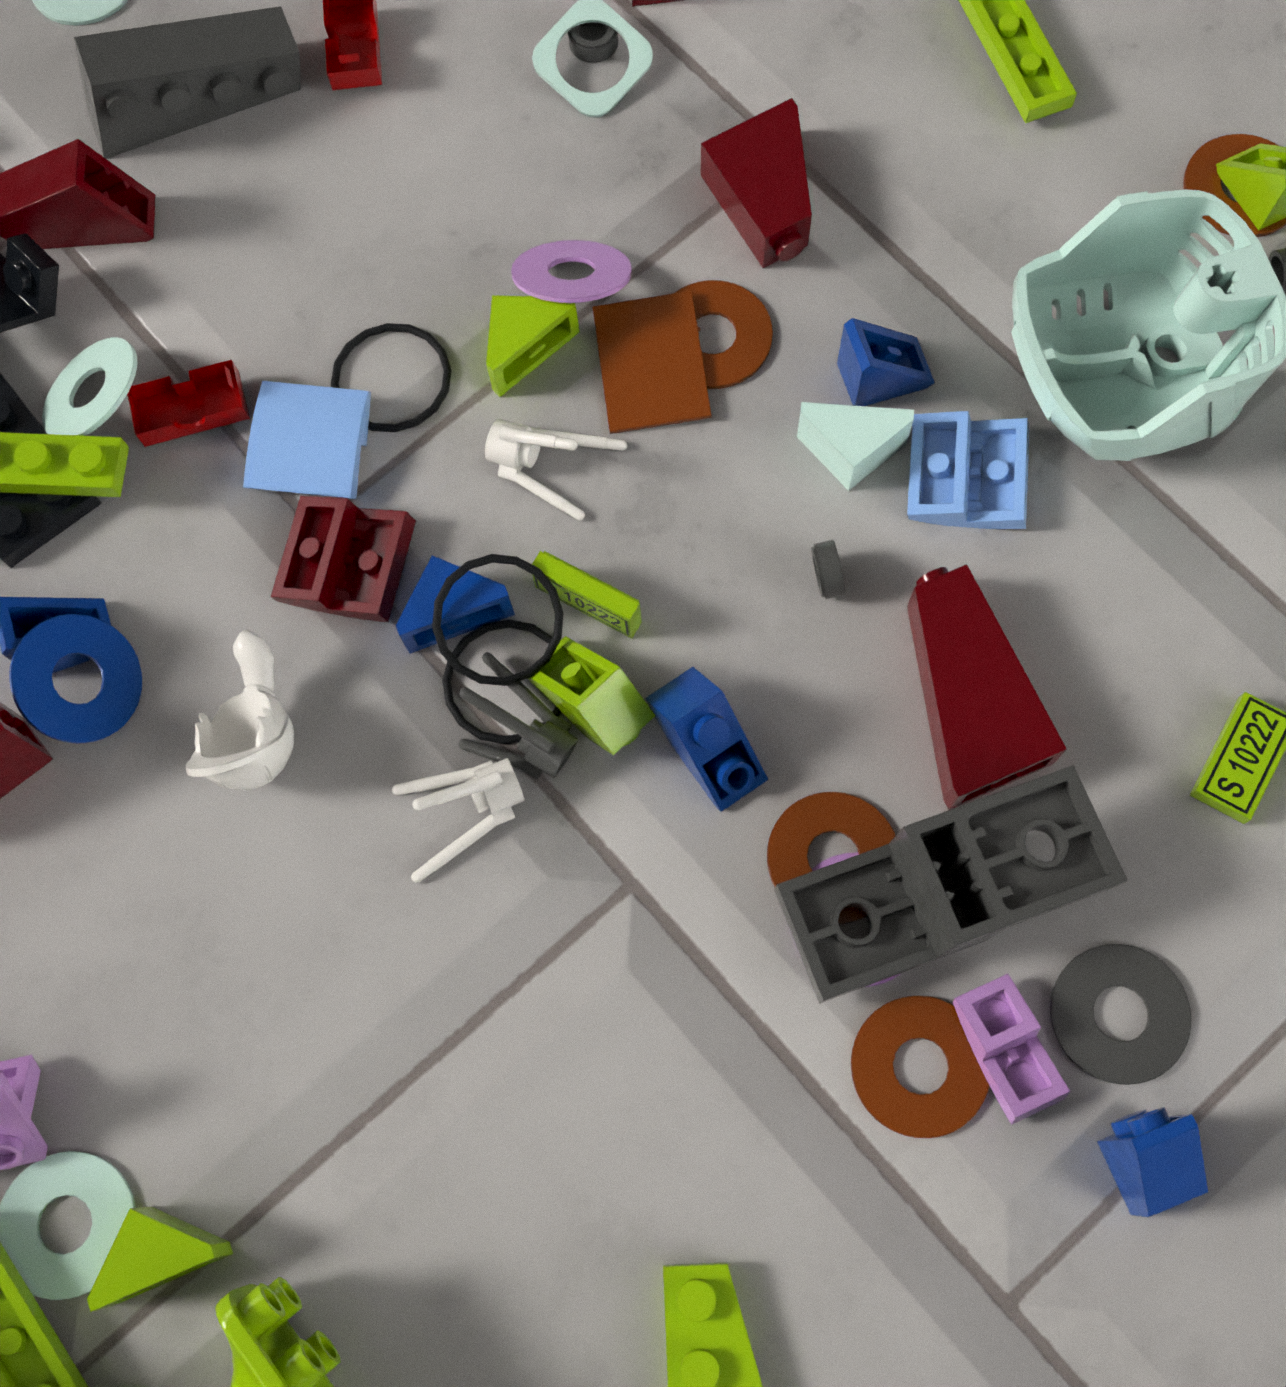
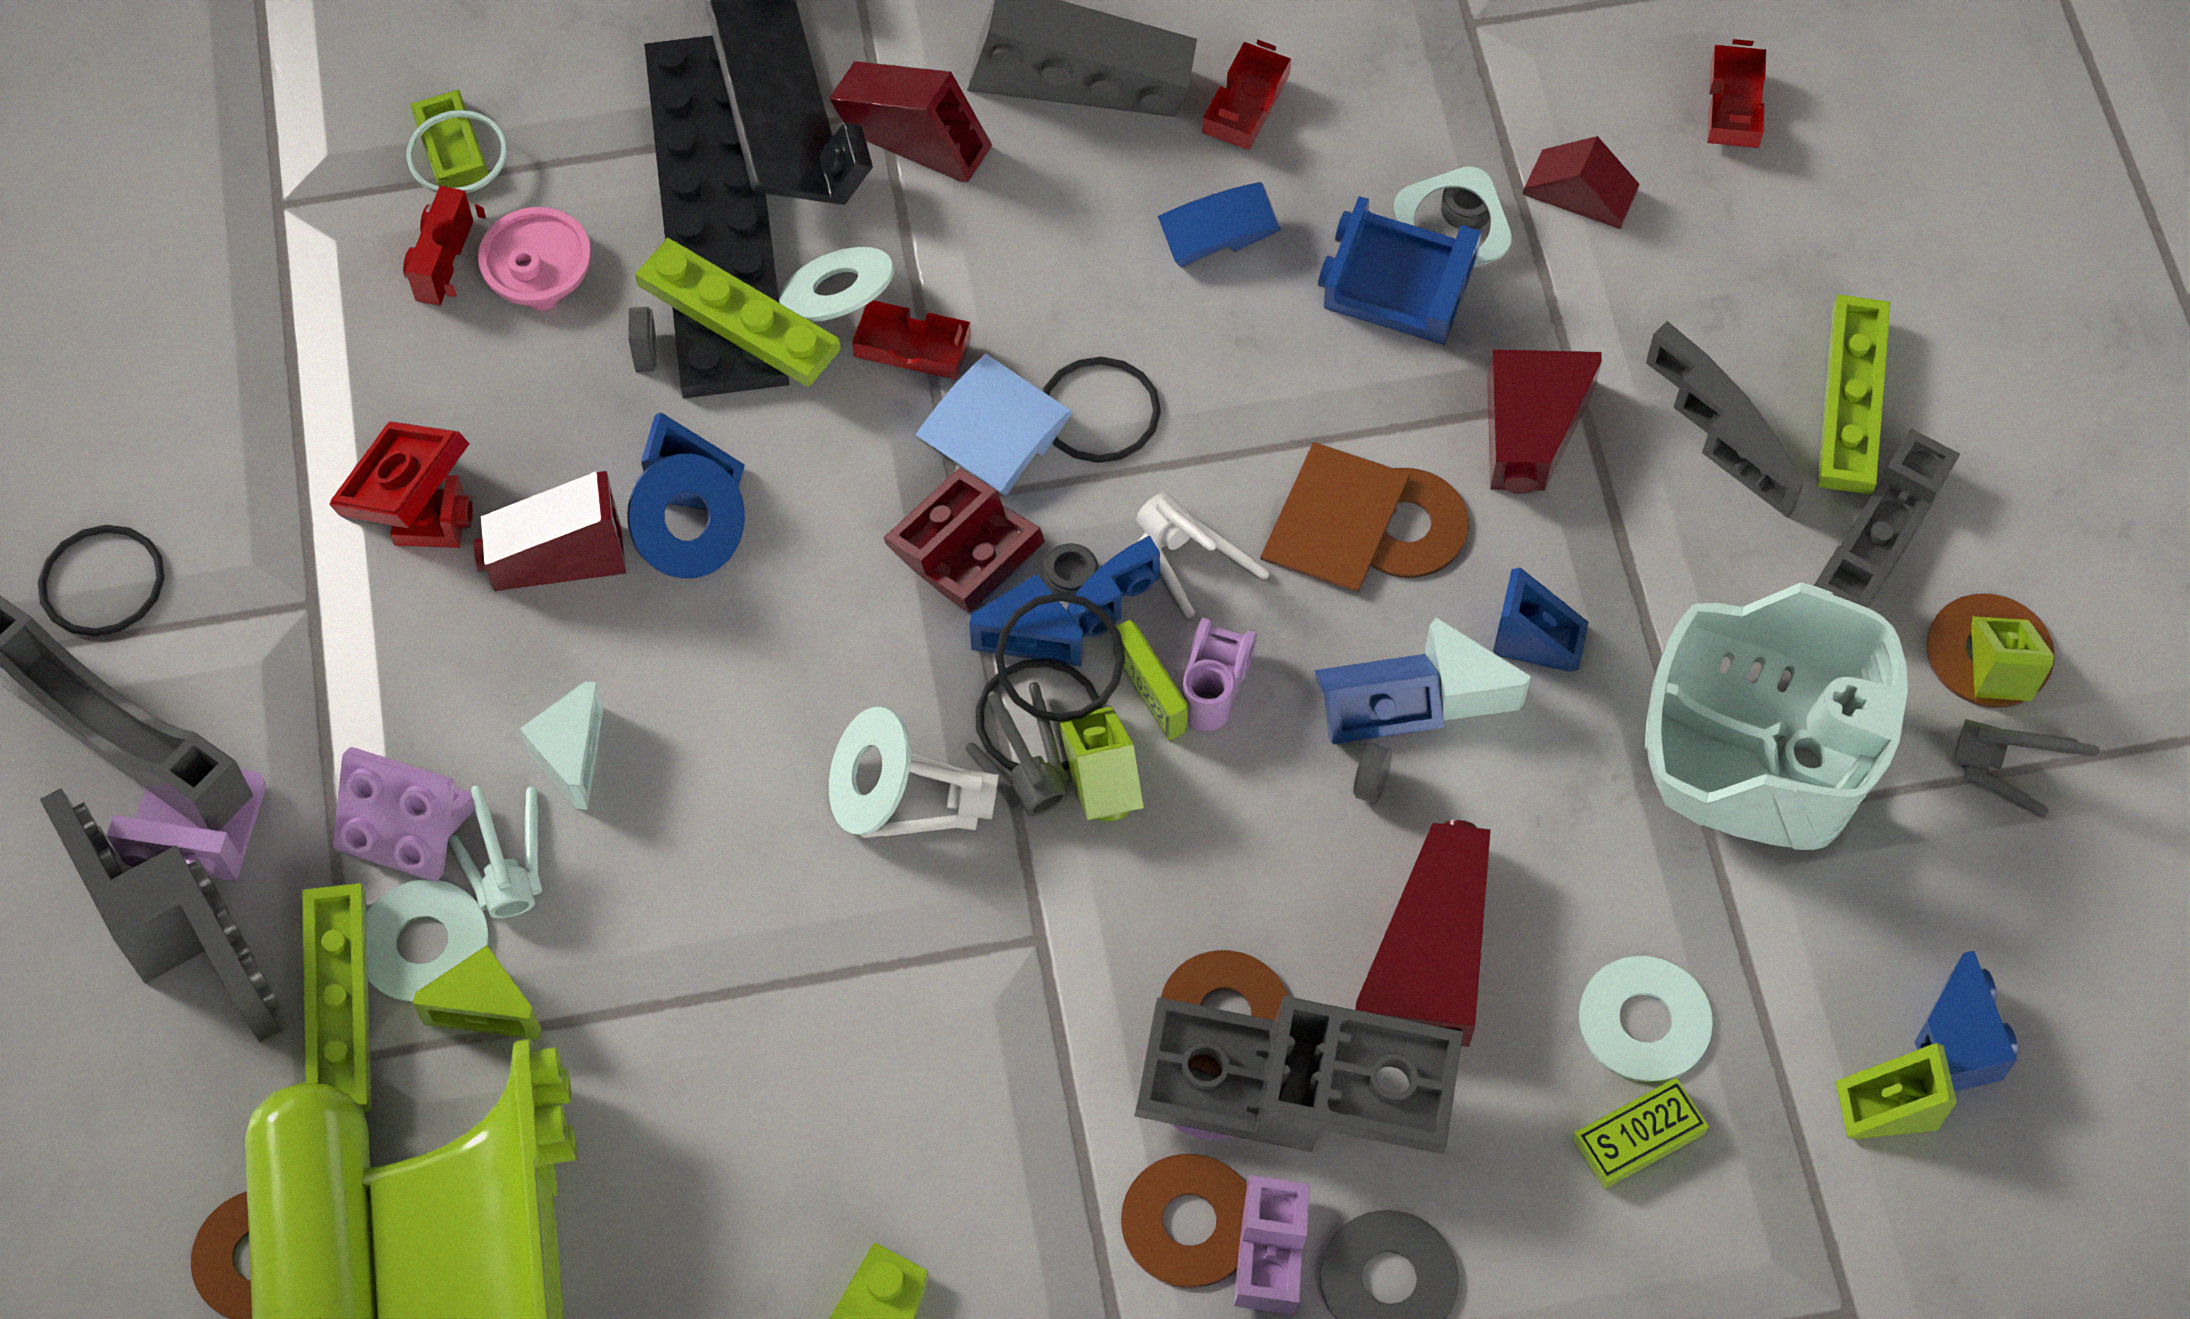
camera: 25 degrees right, 10 degrees down
(92, 953) = (566, 741): none -> light aqua slope
(113, 1128) = (506, 886): none -> light aqua plant
(250, 732) = (802, 635): white piece -> none
(388, 781) = (869, 812): none -> light aqua gear
(394, 157) = (1217, 221): none -> blue slope
(455, 535) = (1068, 568): none -> dark grey tile
(509, 509) = (1125, 574): none -> blue slope
(524, 335) = (1234, 435): lime slope -> none
(577, 122) = (1398, 273): none -> blue panel
(610, 274) = (1272, 390): lavender gear -> none
(637, 549) = (1216, 666): none -> lavender piece
(707, 737) = (1177, 853): blue slope -> none
(791, 498) = (1381, 698): none -> blue panel
(941, 110) = (1737, 432): none -> dark grey slope
(969, 471) = (1557, 761): light blue slope -> none
(1101, 119) = (1888, 520): none -> dark grey slope
(1171, 694) = (1645, 1060): none -> light aqua gear

